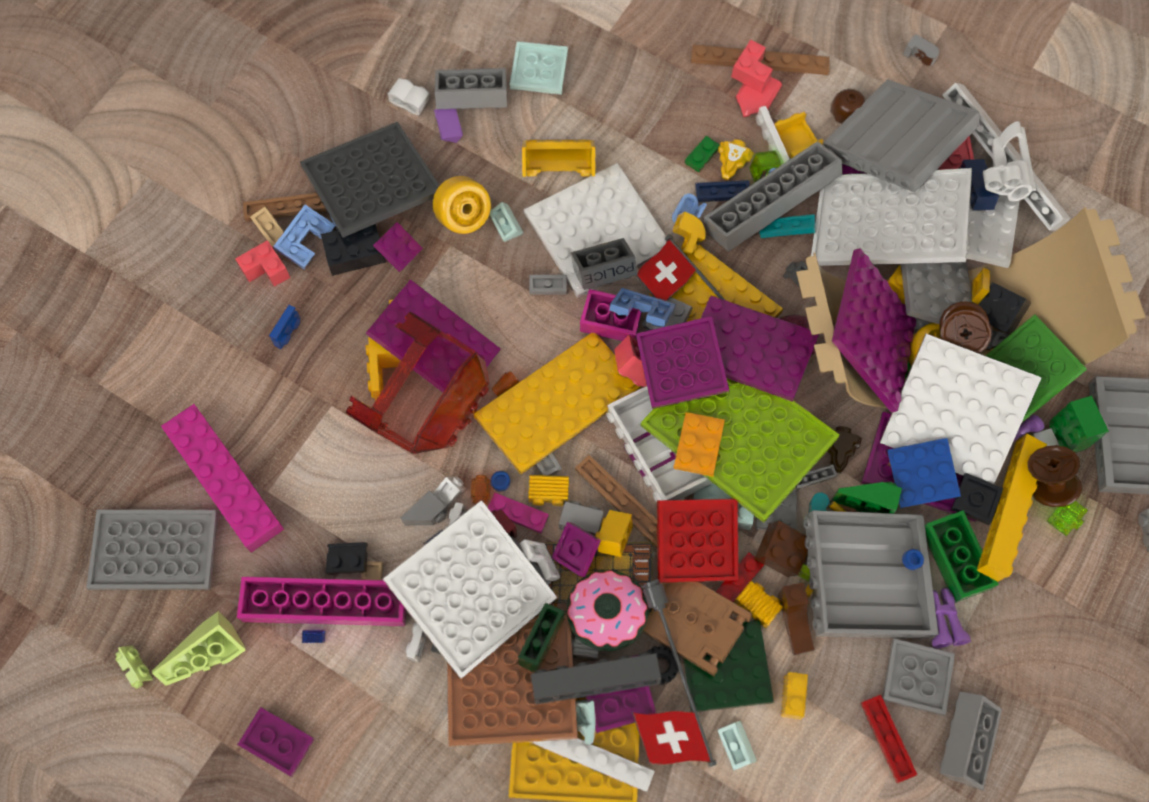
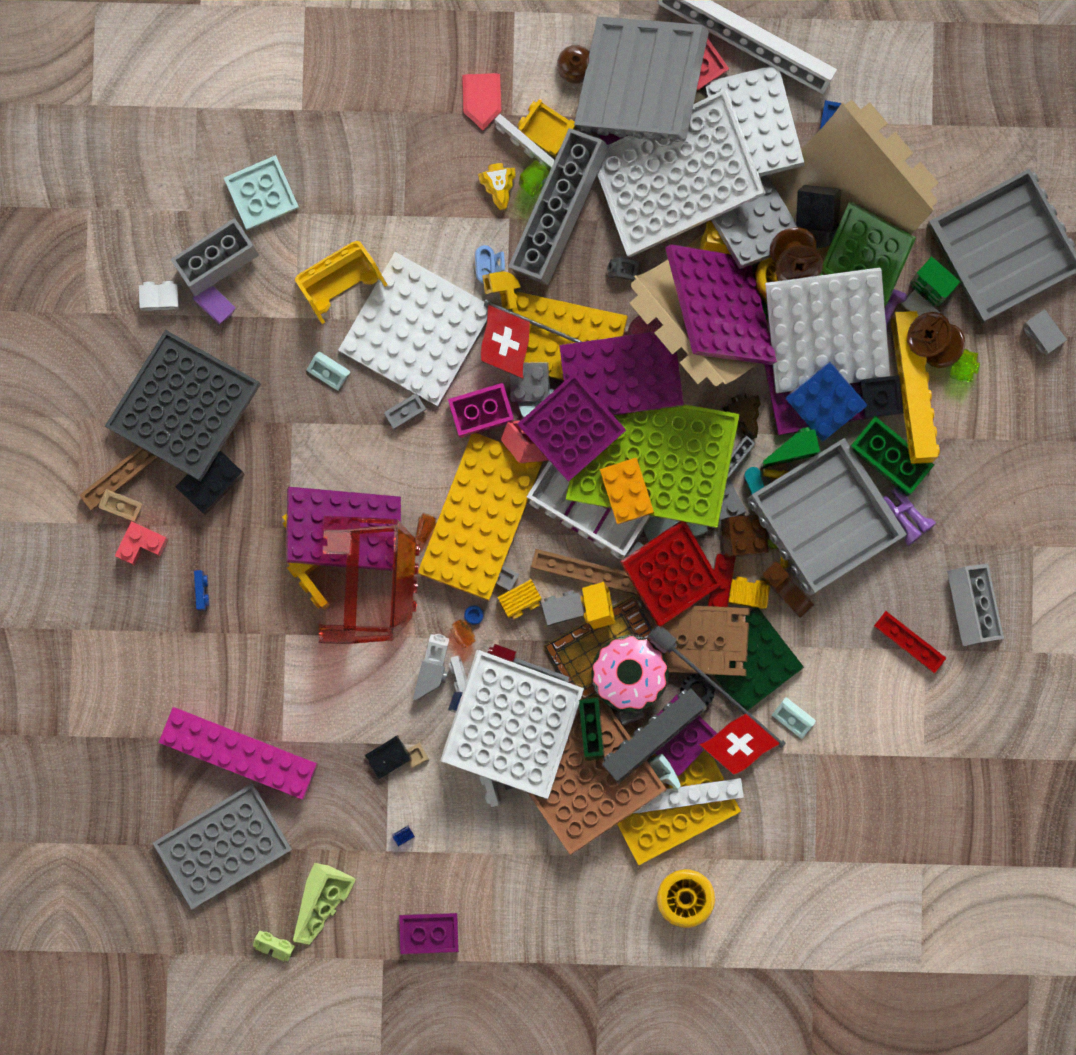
camera: 30 degrees left, 15 degrees up
(290, 240) = (149, 482): light blue plate -> none
(319, 602) = (392, 806): dark pink brick -> none
(398, 246) = (251, 456): magenta plate -> none
(461, 204) = (285, 384): yellow wheel -> none
(519, 513) = (505, 633): dark pink plate -> none
(539, 553) = (546, 660): white tile -> none
(576, 549) = (575, 639): magenta plate -> none
(604, 263) = (447, 368): dark grey brick -> none
(658, 309) = (521, 385): medium blue plate -> none
(702, 154) = (467, 194): green plate -> none
(719, 190) = (506, 224): dark blue plate -> none
(750, 69) = (463, 84): coral brick -> none
(776, 60) = (464, 58): medium nougat plate -> none
(790, 226) = (590, 227): teal plate -> none
(794, 695) = (817, 652): yellow brick -> none
(913, 559) = (855, 483): blue tile -> none
(918, 677) = (908, 577): light grey plate -> none
(980, 197) = (740, 91): dark blue brick -> none
(980, 285) = (789, 195): yellow tile -> none
(1015, 177) = (765, 70): white panel -> none

